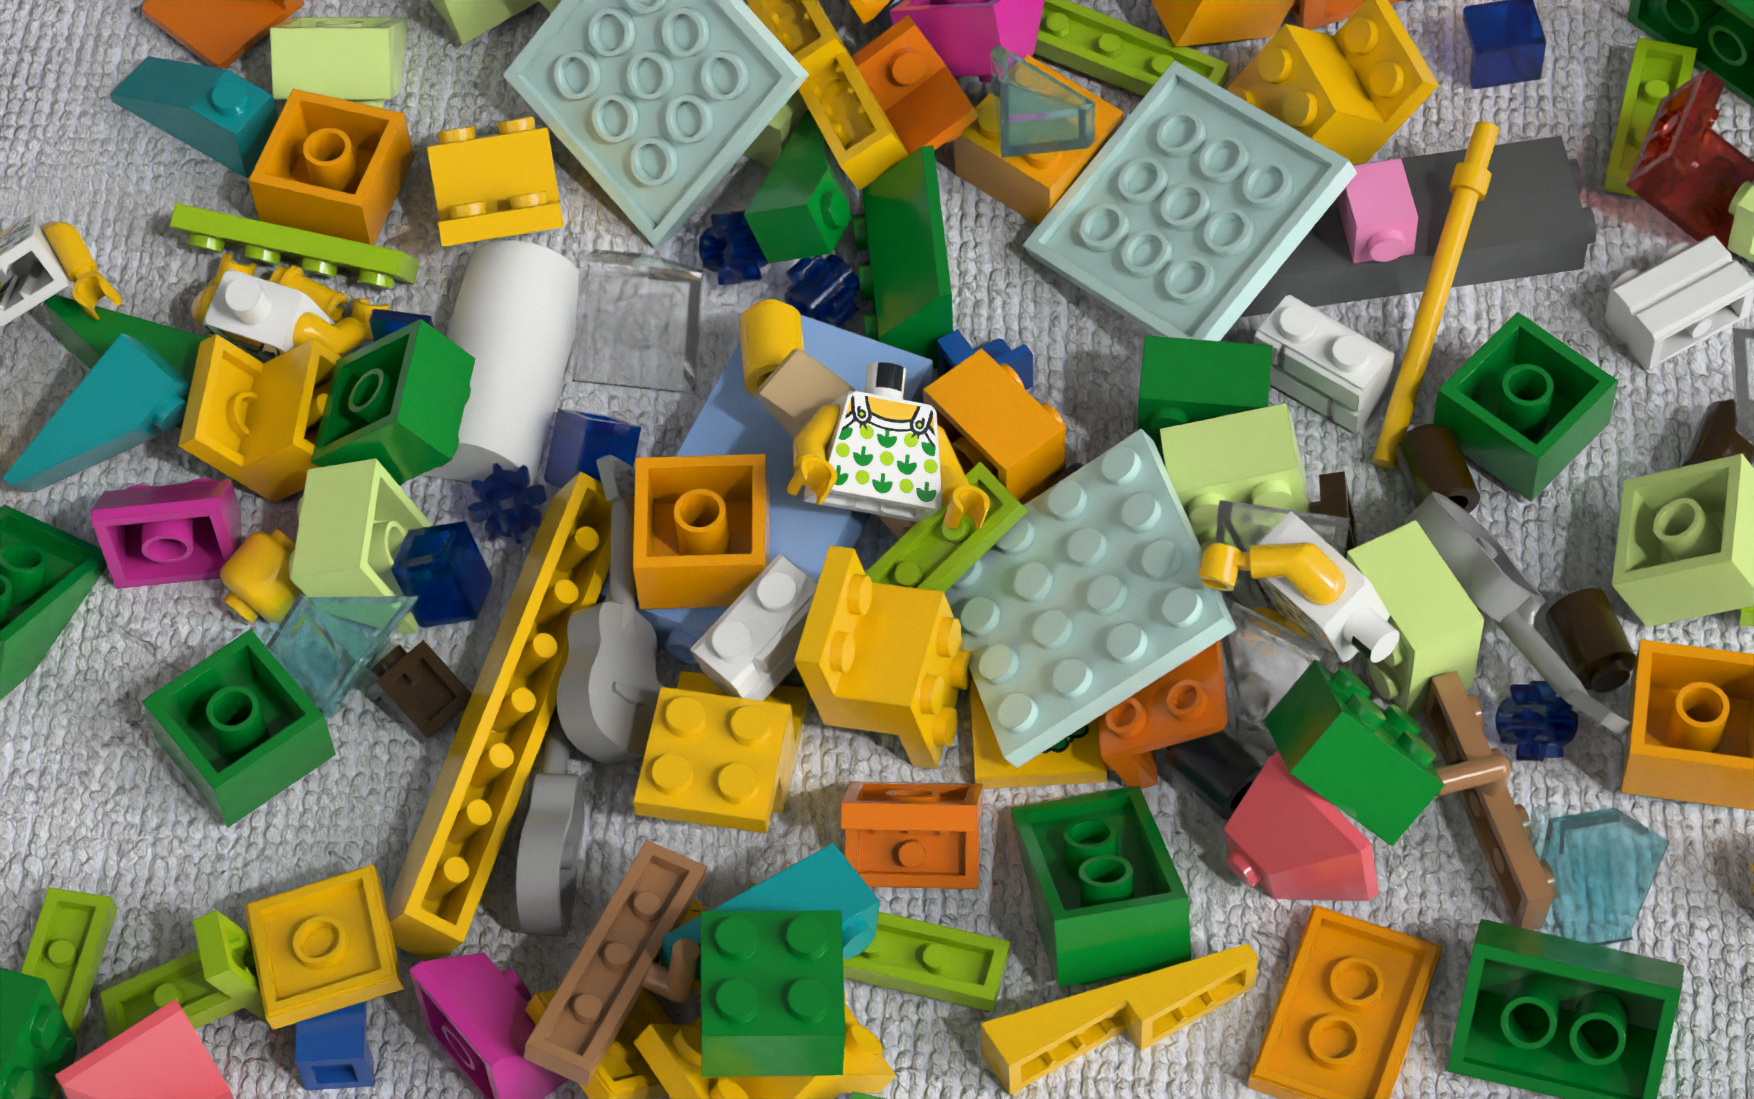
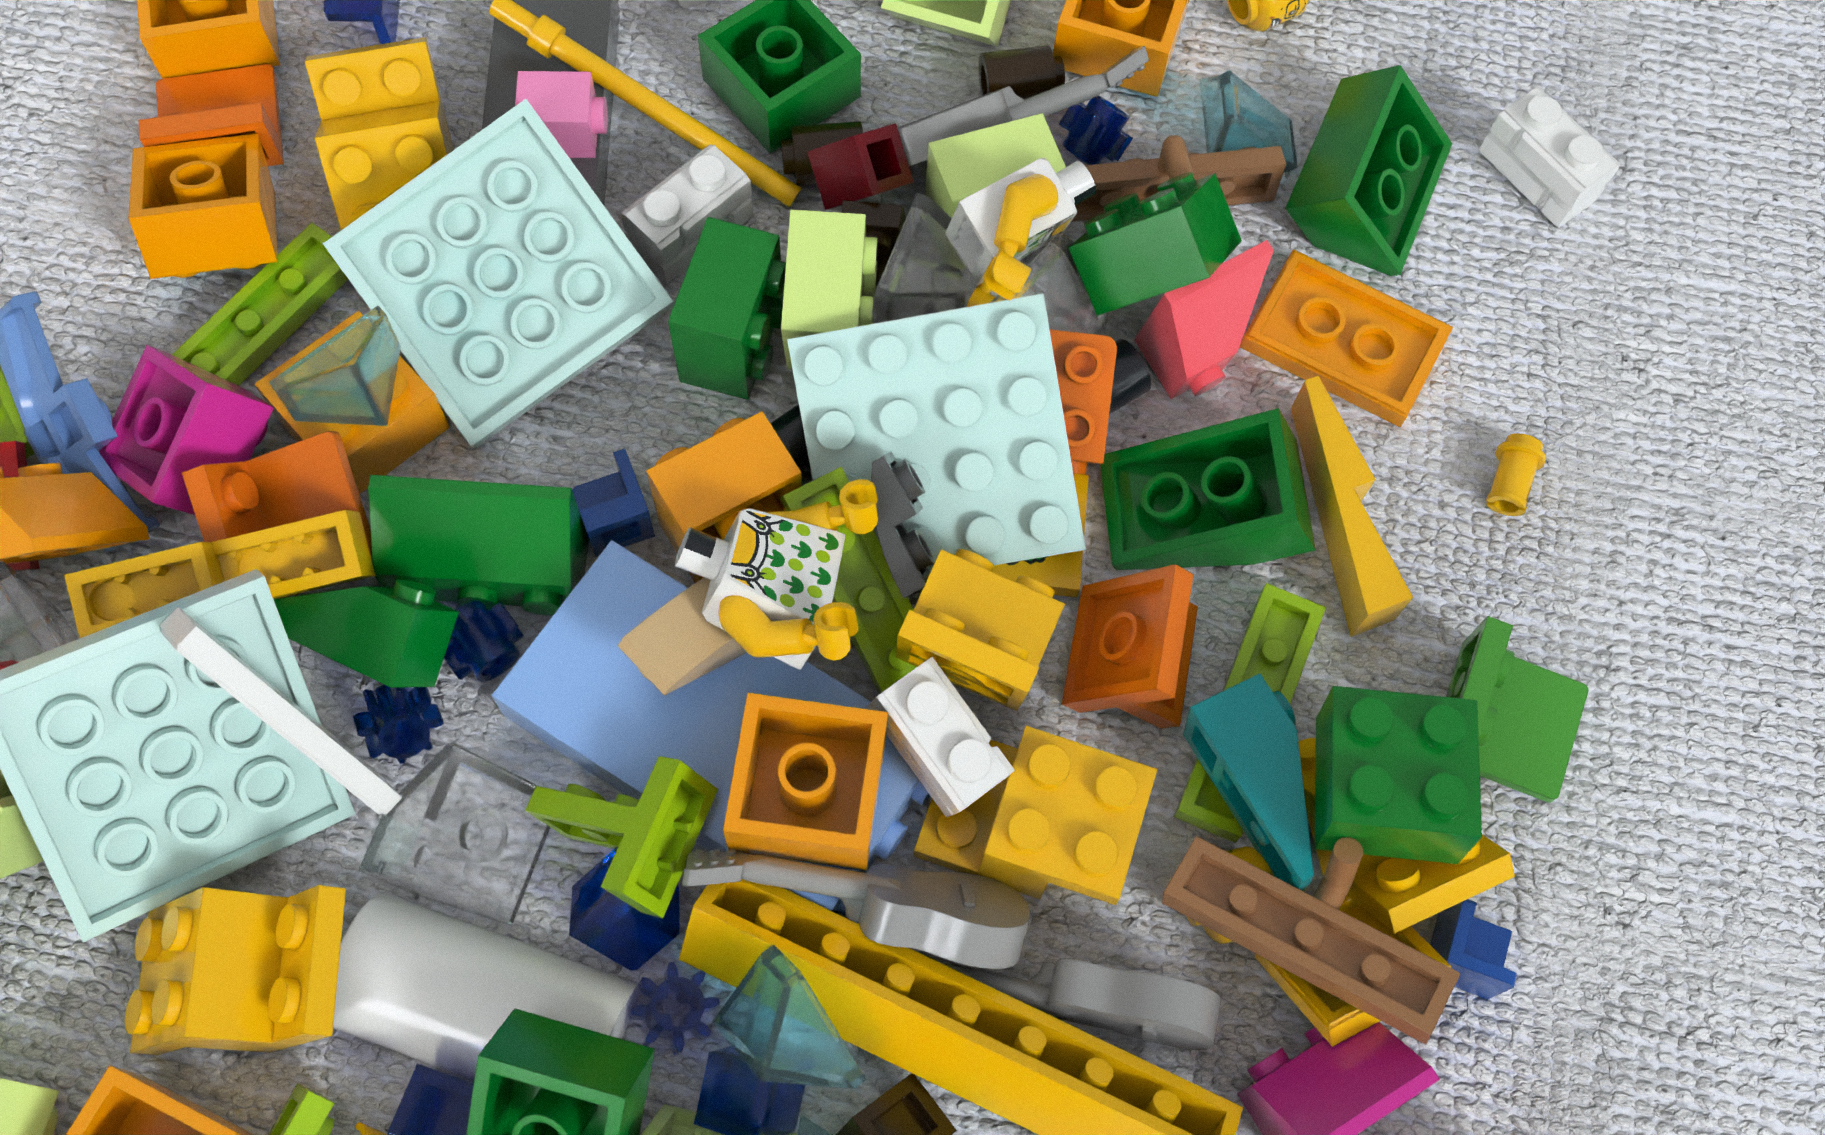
camera: 90 degrees left, 10 degrees up
(484, 575) = (784, 1029): none -> clear light blue slope
(649, 426) = (649, 832): none -> lime bracket
(695, 135) = (278, 711): none -> white tile
(767, 337) = (574, 684): yellow brick -> none
(995, 555) = (897, 496): none -> dark grey slope
(1392, 481) = (860, 166): none -> dark red brick

